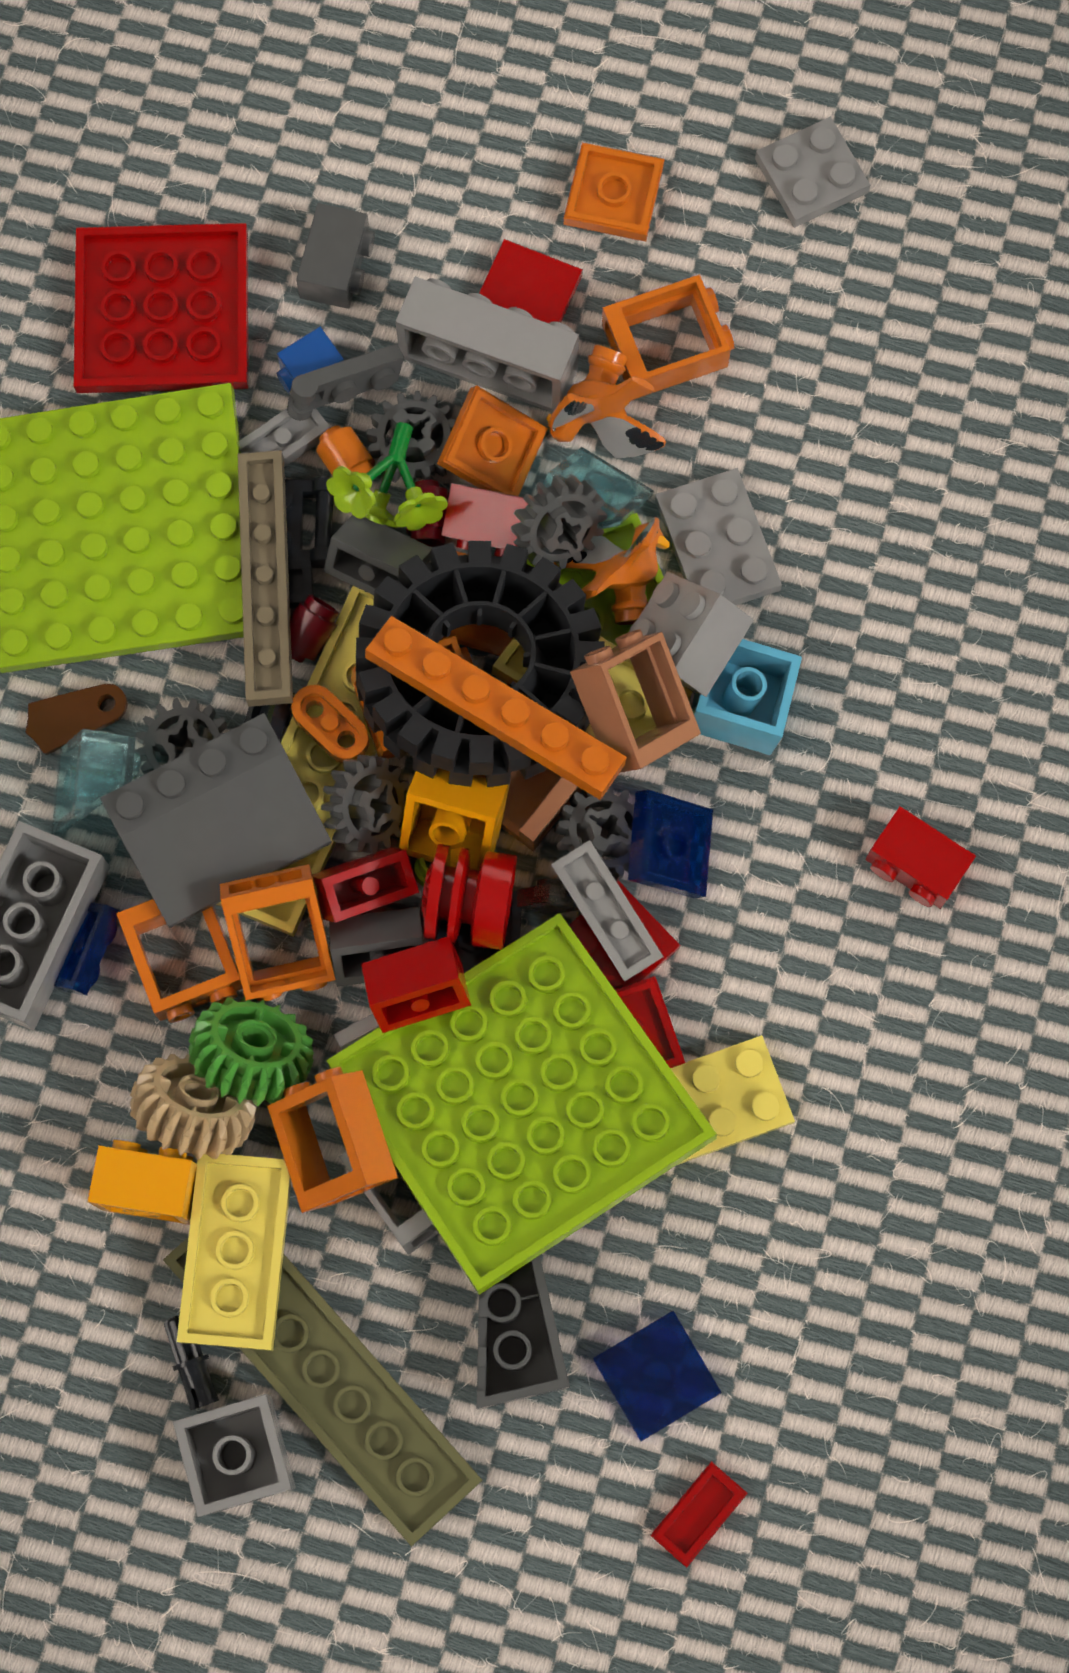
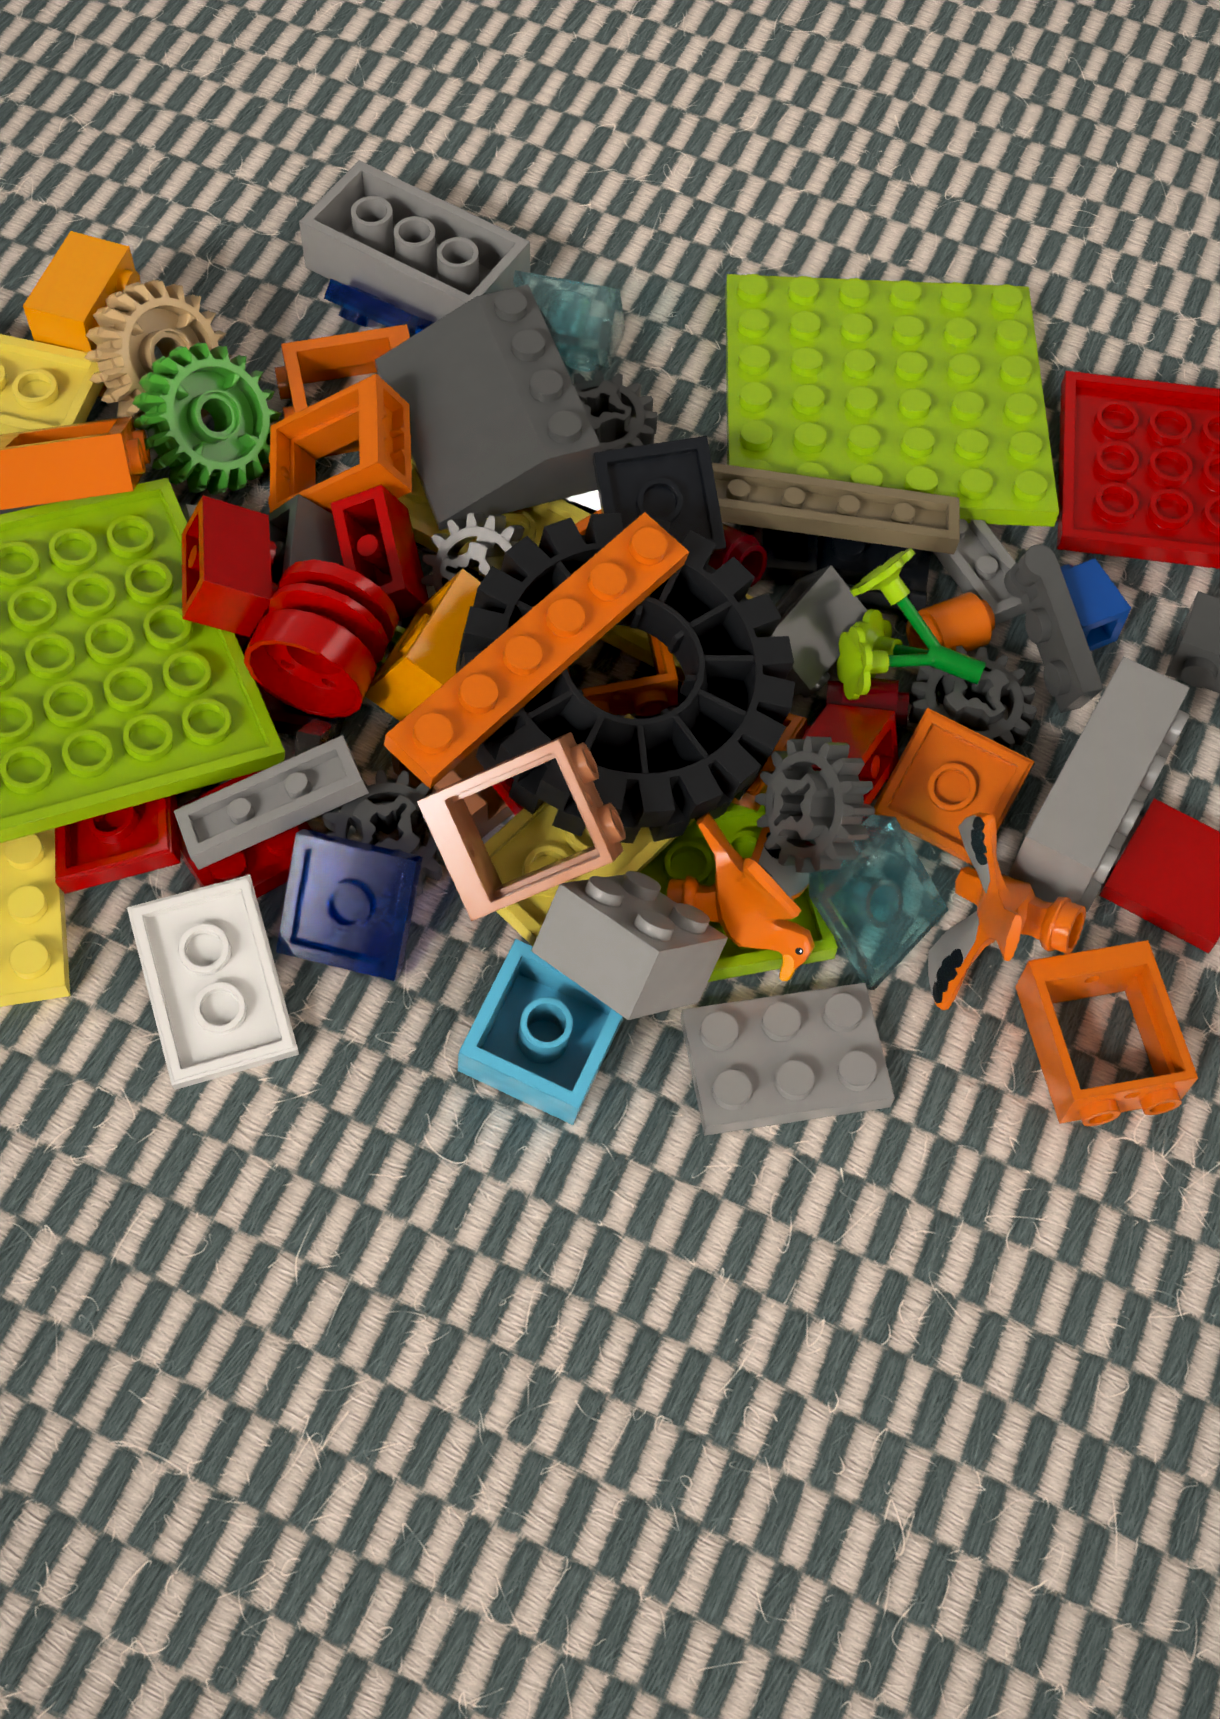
camera: 95 degrees right, 15 degrees down
(61, 717) = (660, 339): reddish brown piece -> none
(303, 665) = (666, 482): none -> black plate
(739, 932) = (212, 982): none -> white tile
(919, 859) = (251, 1238): red brick -> none

